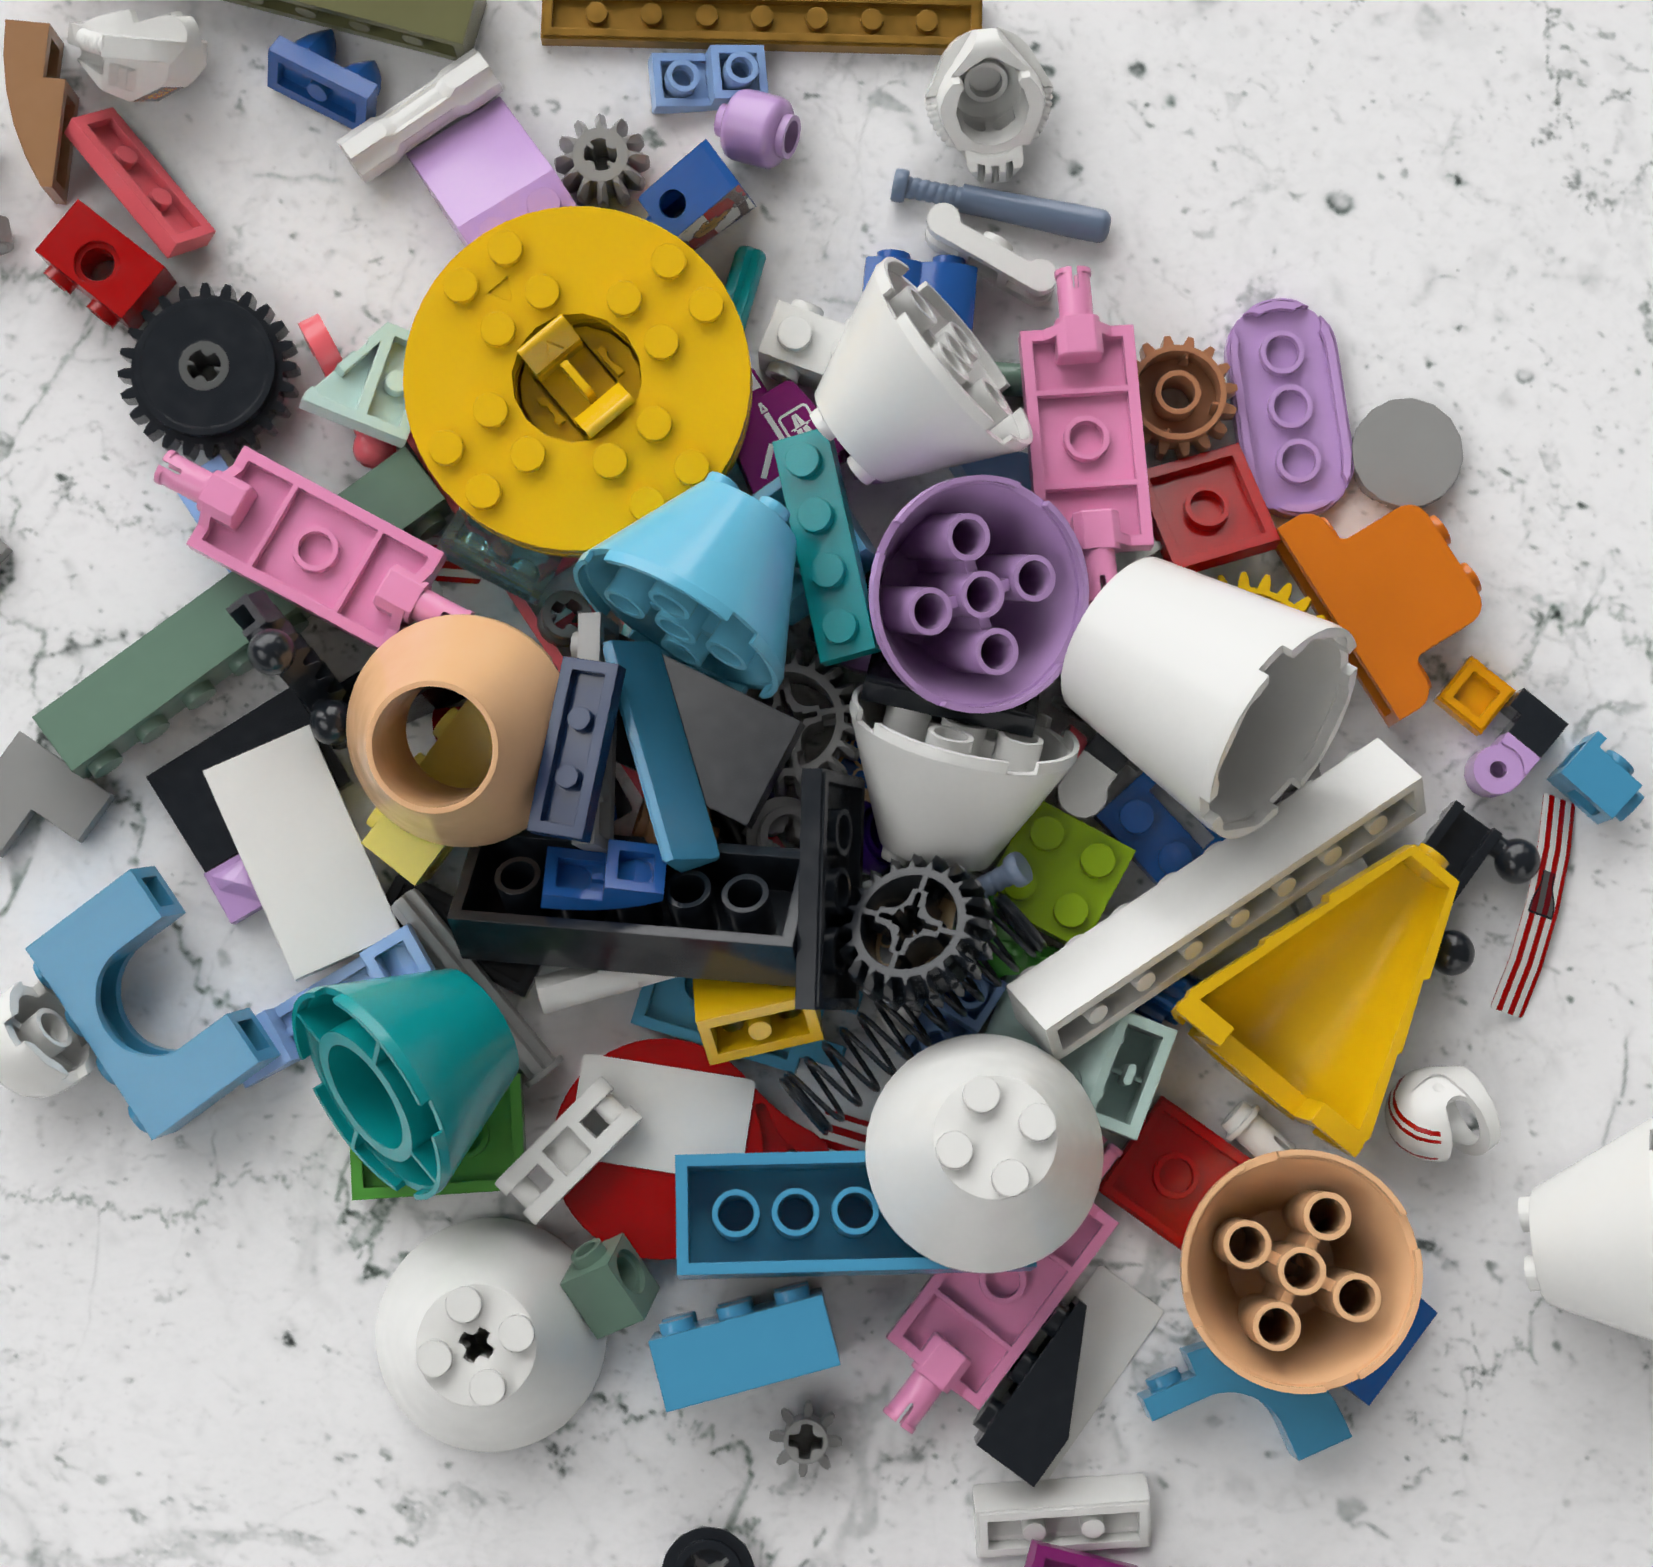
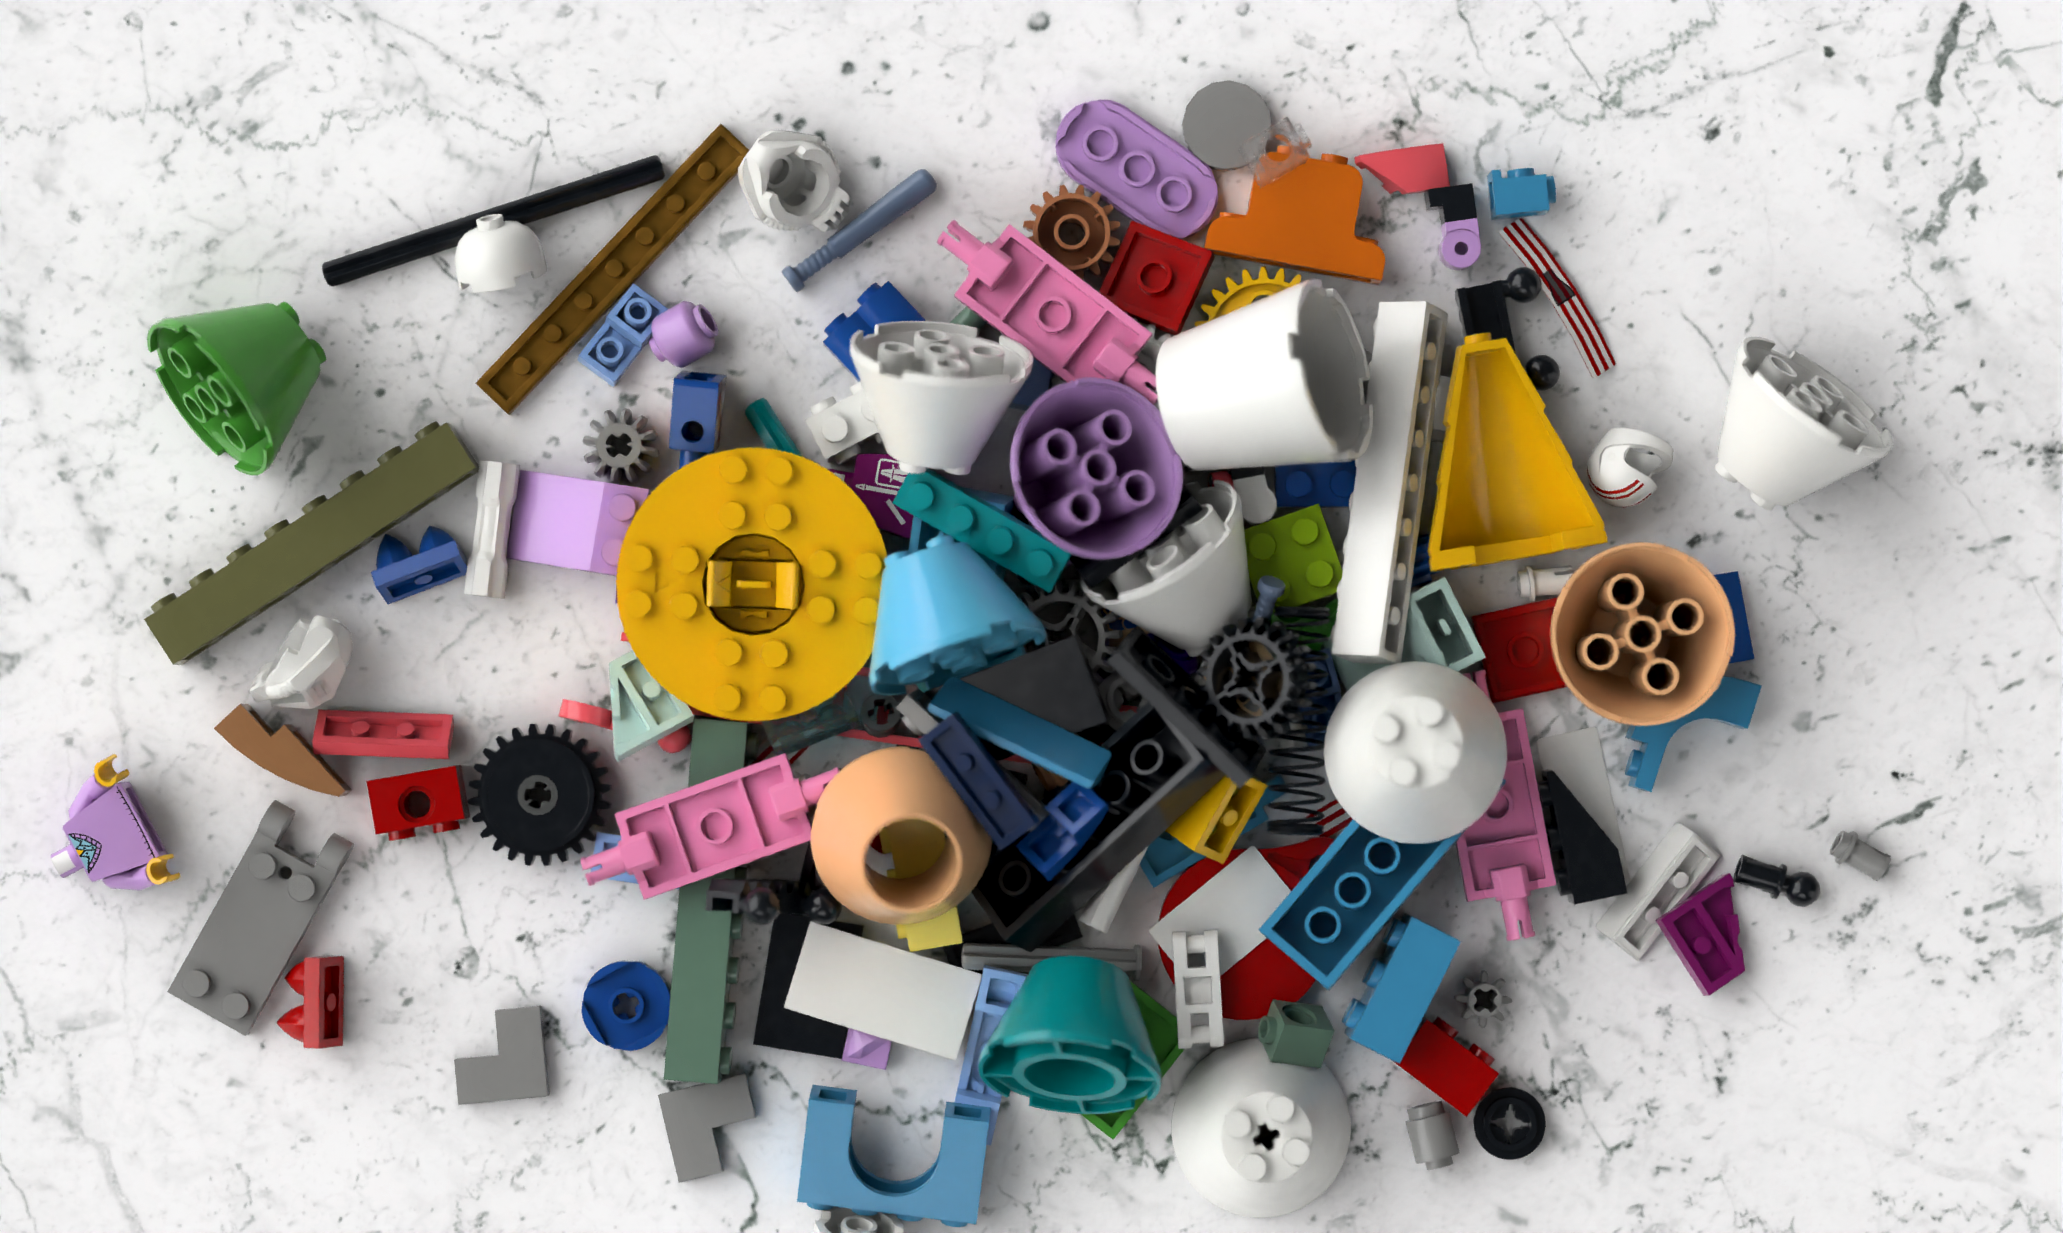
camera: 45 degrees left, 5 degrees up
(66, 598) = (602, 997): none -> blue plate
(629, 1508) = (1432, 1135): none -> light grey brick
(709, 1462) = (1447, 1066): none -> red brick
(992, 254) = (886, 266): white plate -> none
(1405, 516) = (1261, 166): none -> clear brick
(1474, 696) = (1405, 218): light orange tile -> none
(1523, 654) = (1408, 169): none -> coral slope

